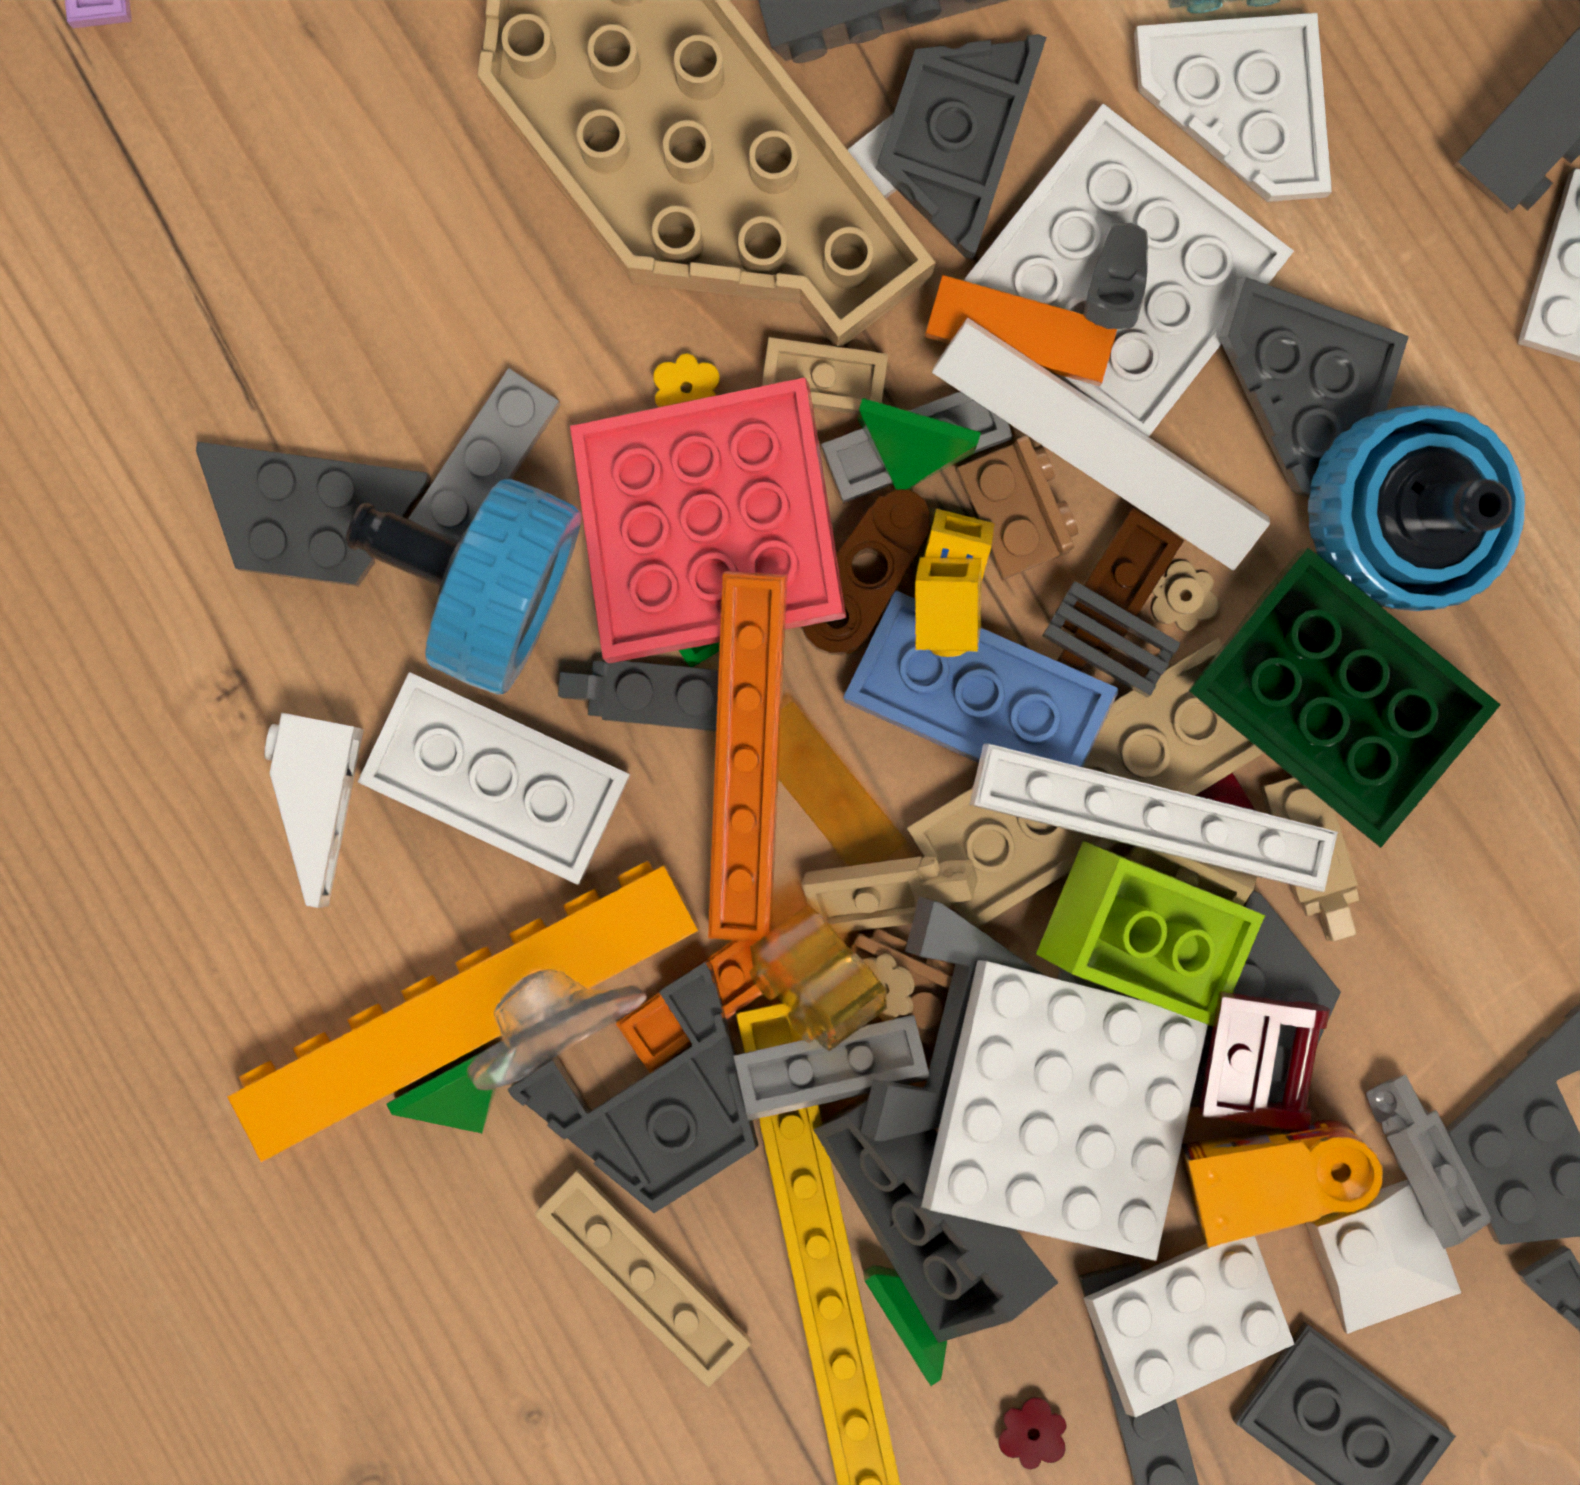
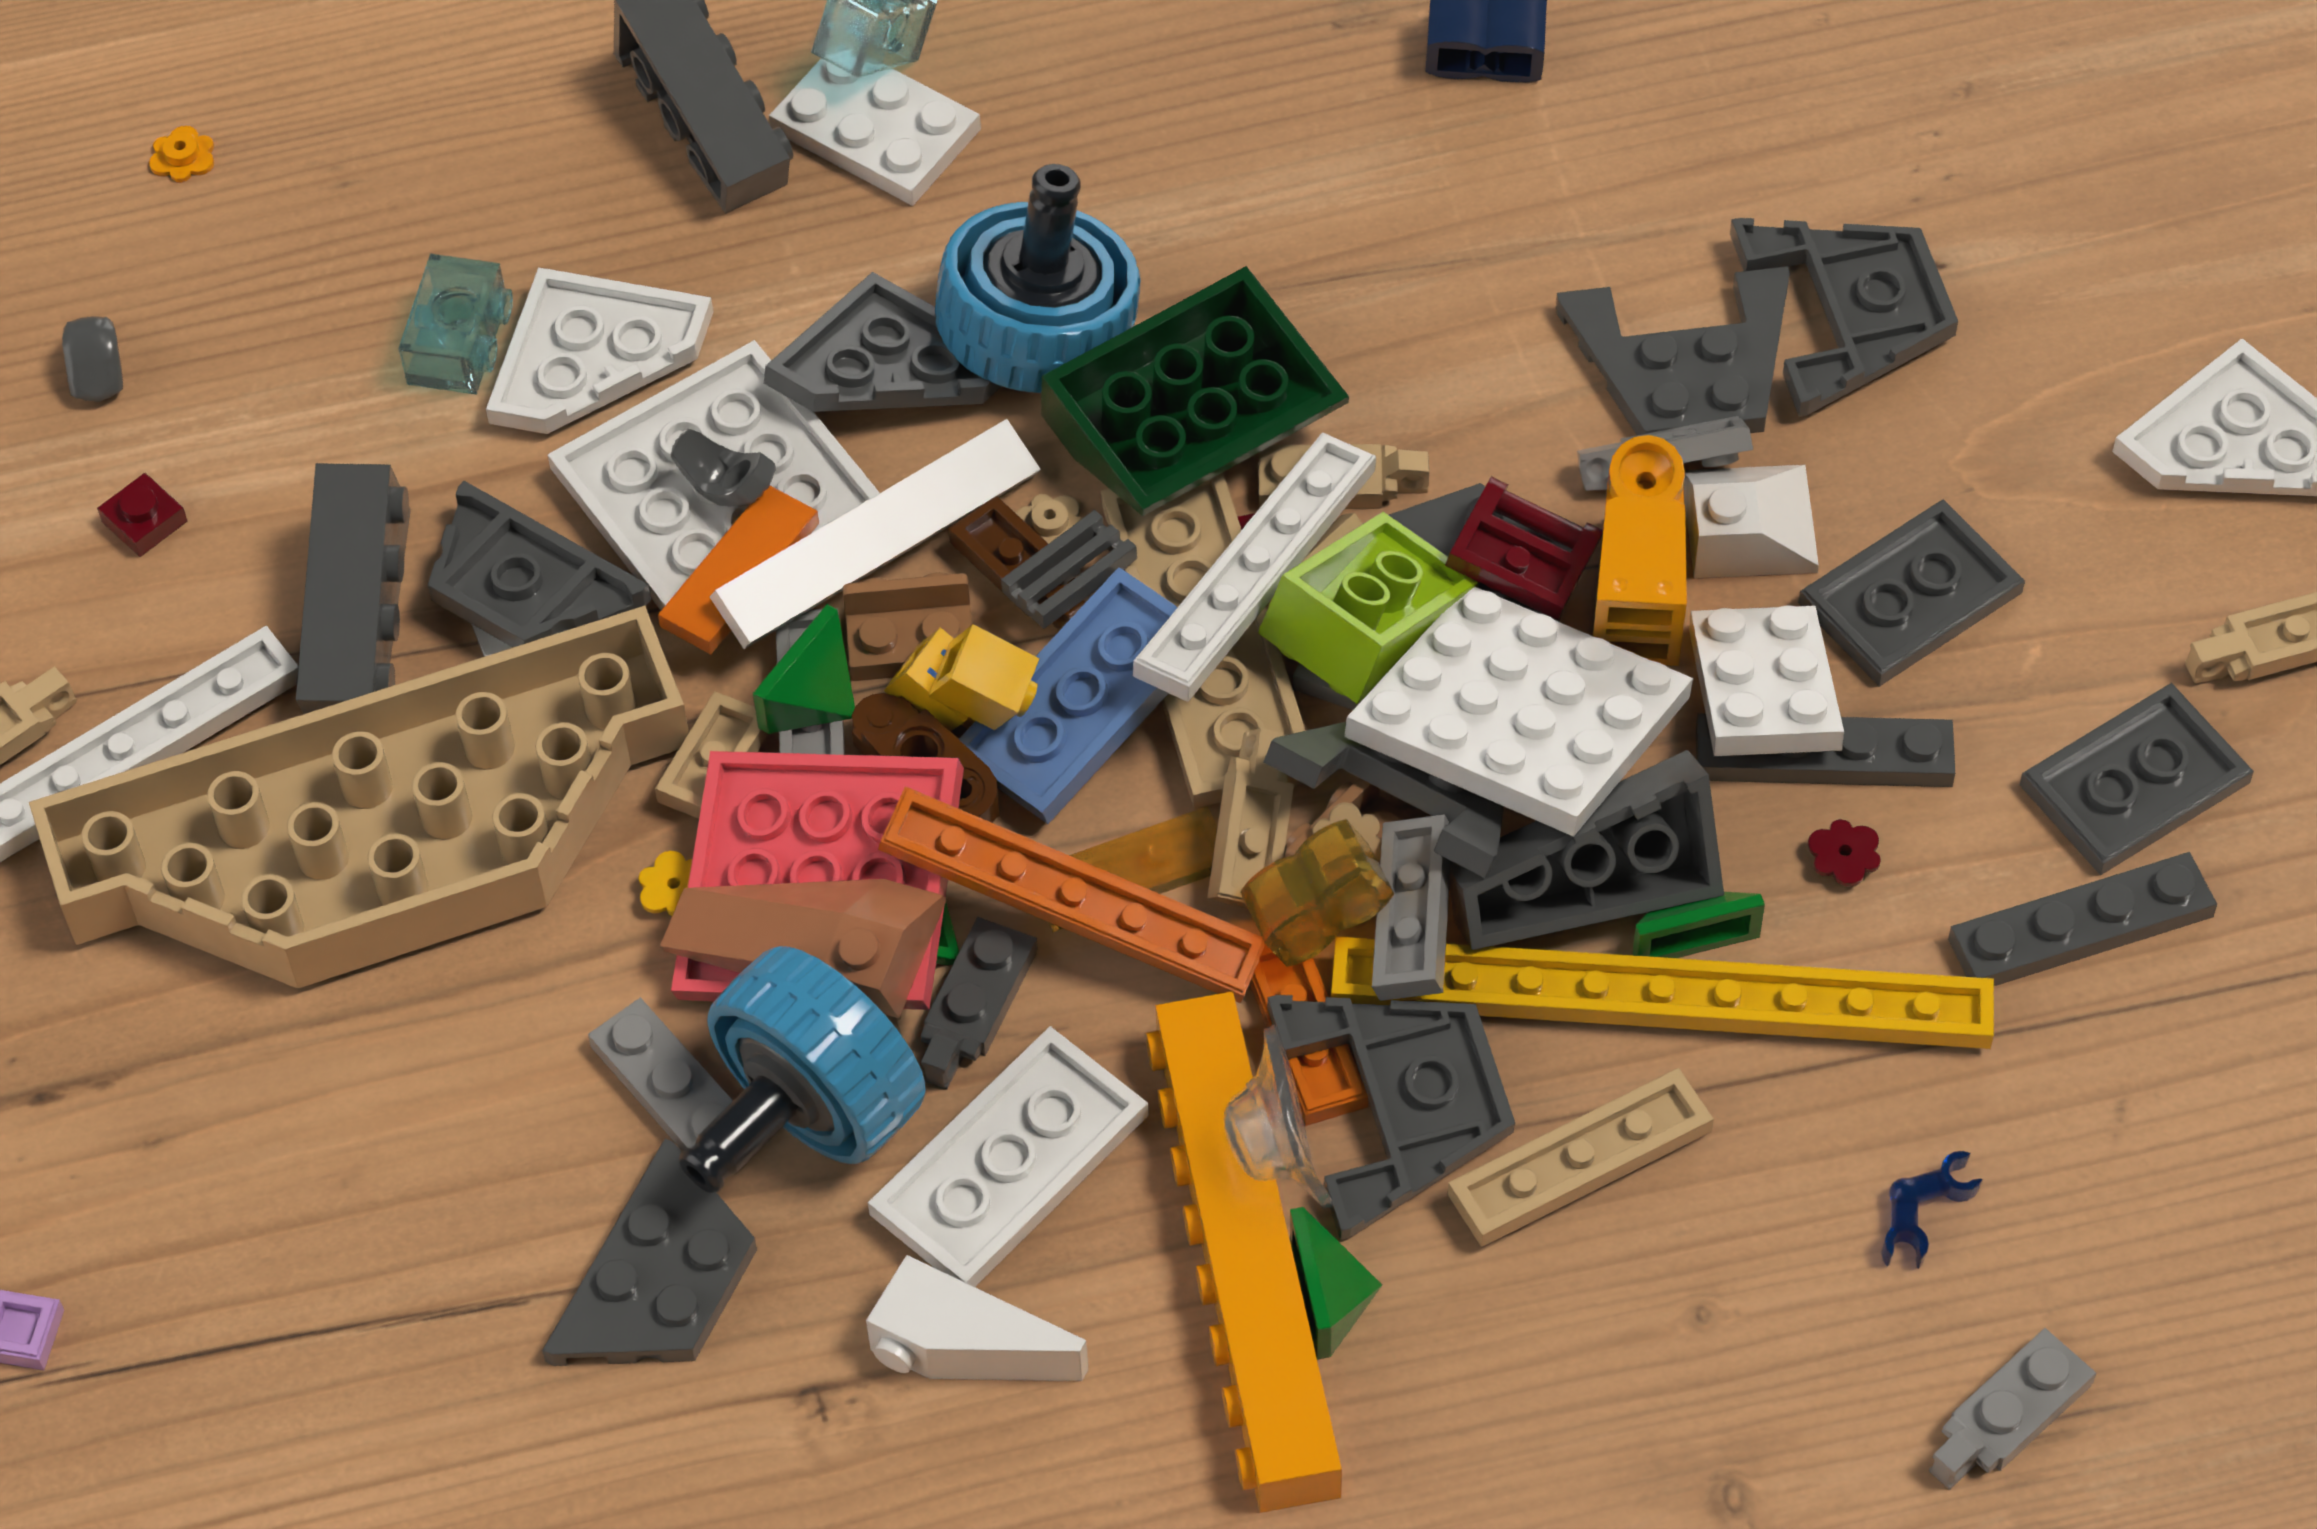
camera: 75 degrees left, 30 degrees down
(633, 545) = (859, 927): none -> nougat wedge

